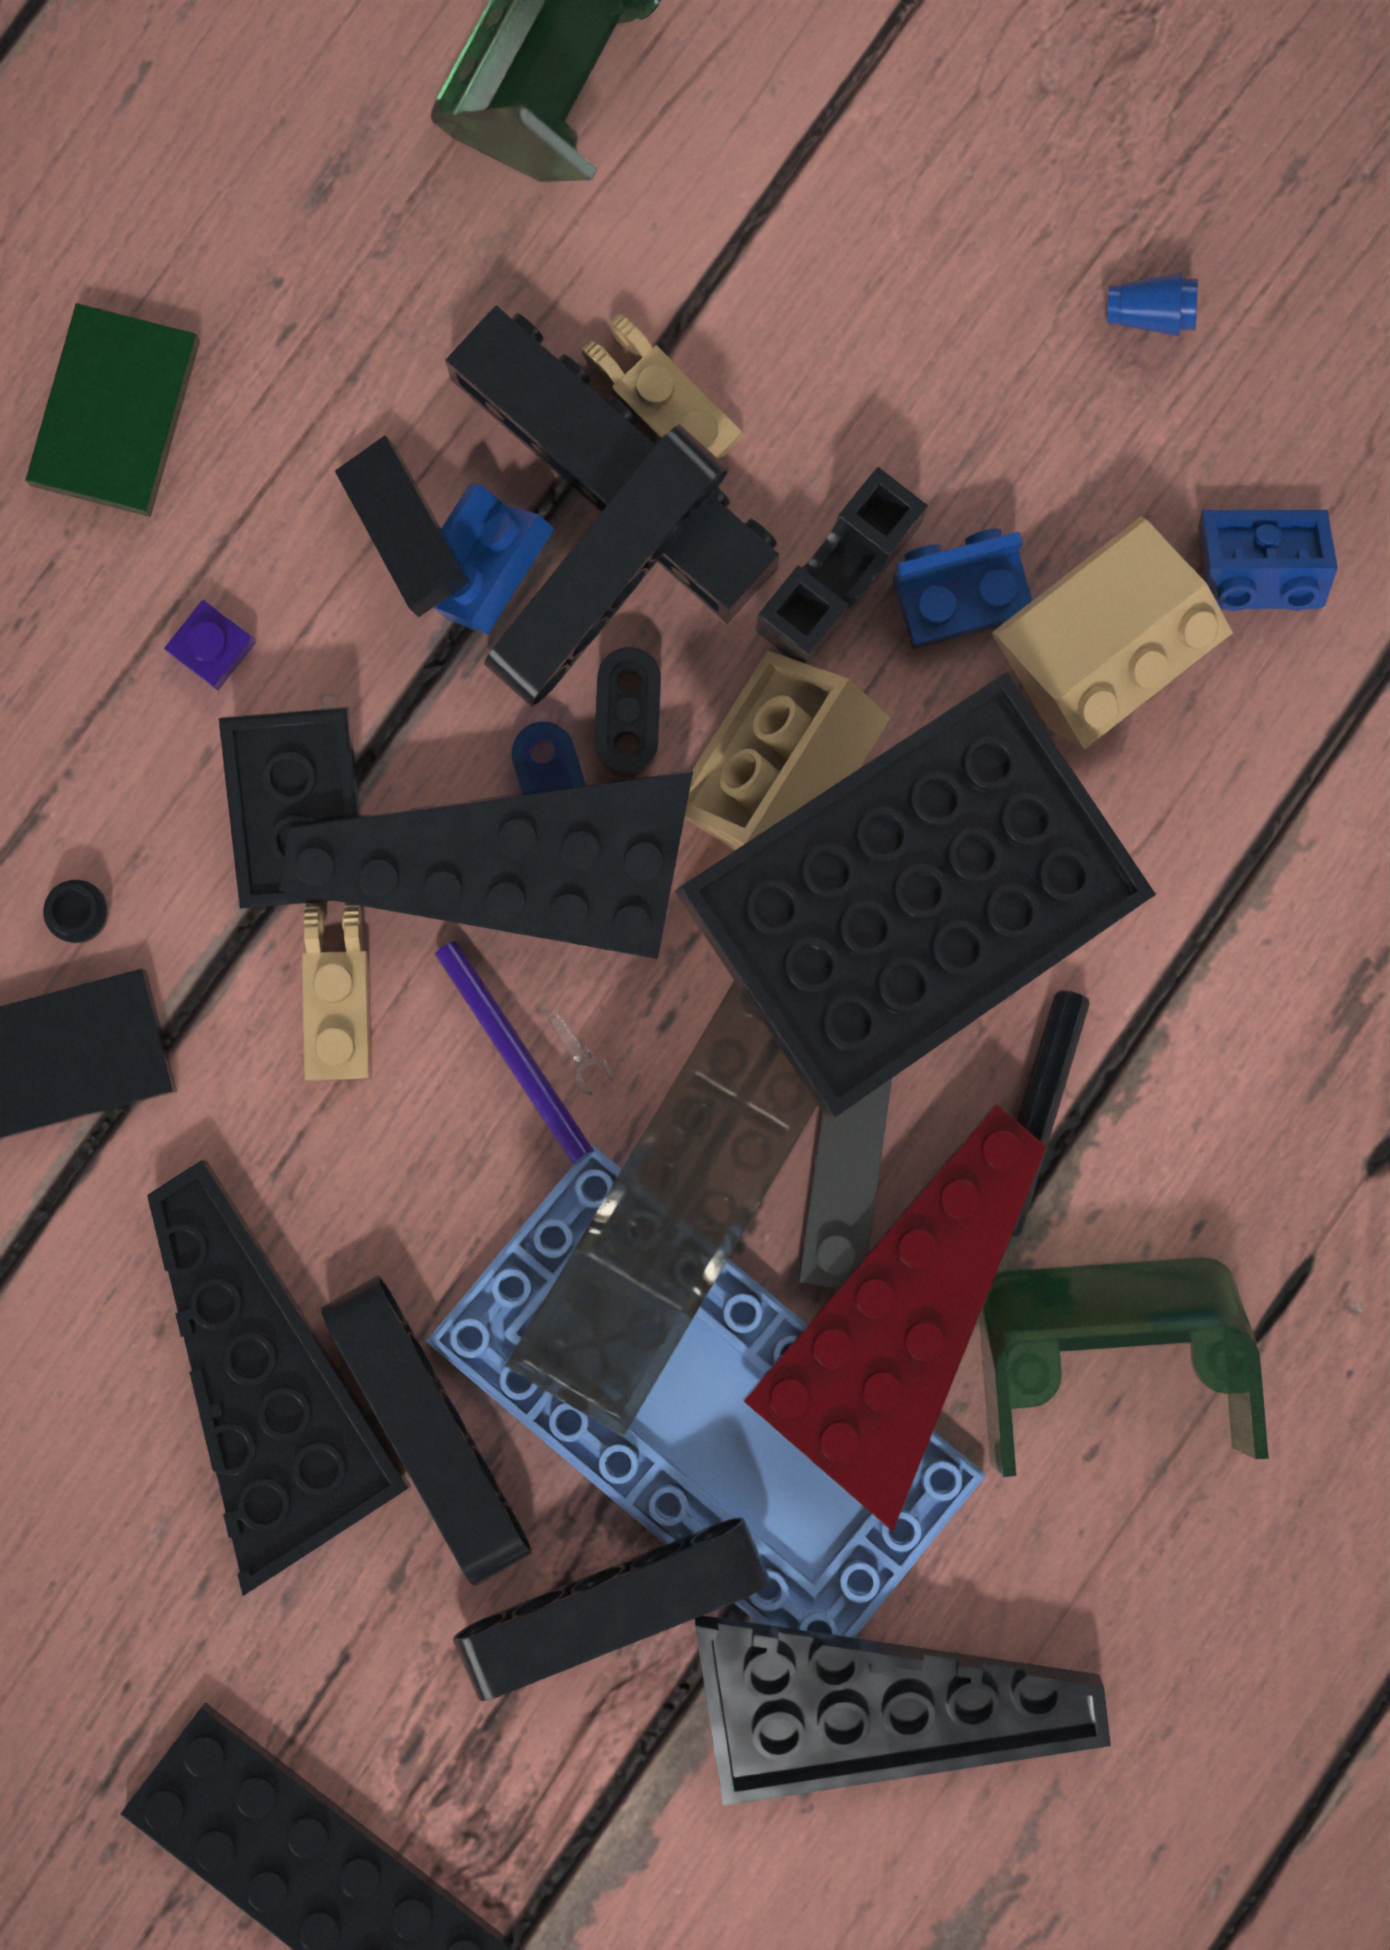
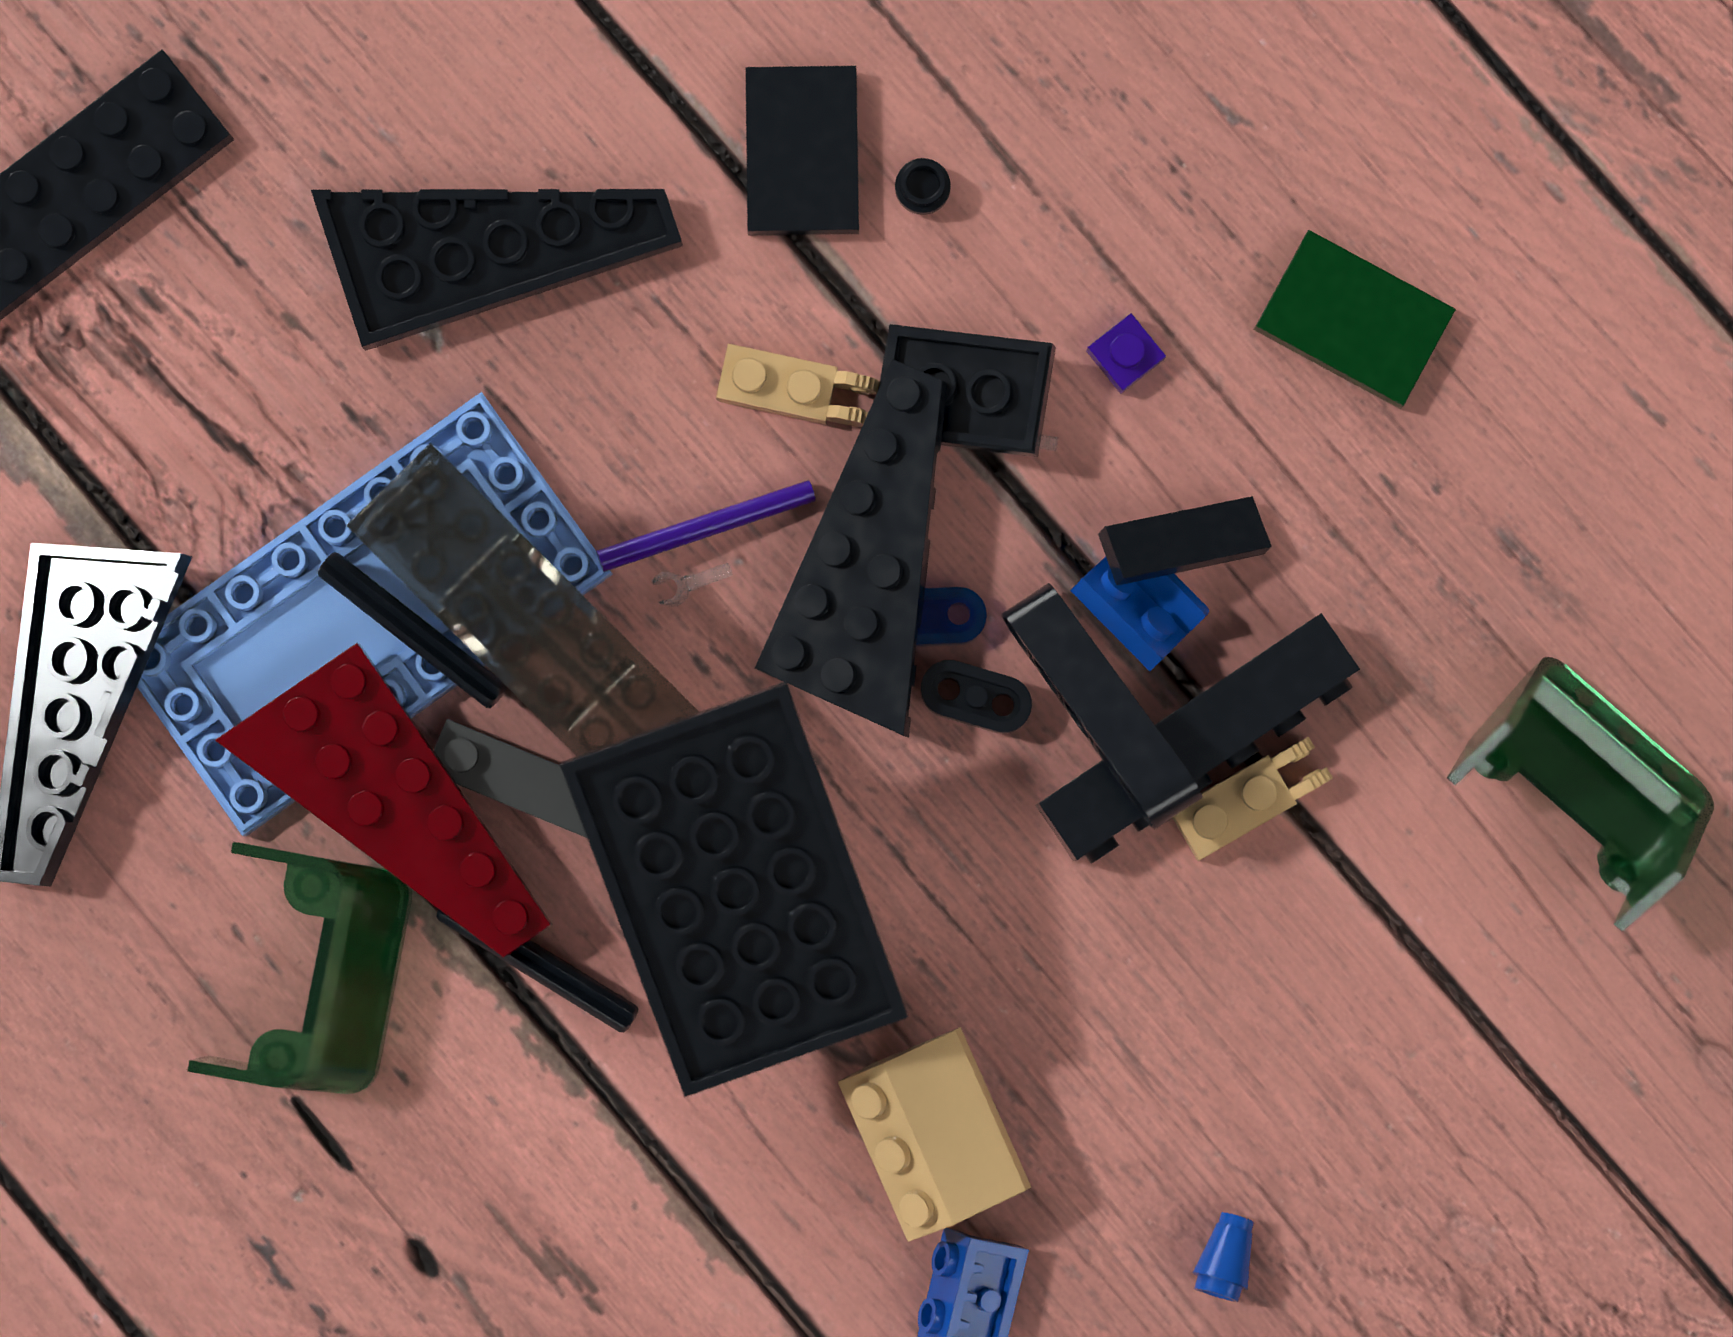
camera: 105 degrees right, 0 degrees up
(426, 1430) = (406, 373): black beam -> none
(611, 1609) = (216, 490): black beam -> none
(713, 1345) = (412, 630): none -> black axle
(780, 748) = (903, 818): tan slope -> none
(843, 569) = (1053, 913): black arch -> none
(962, 587) = (1010, 1018): blue bracket -> none

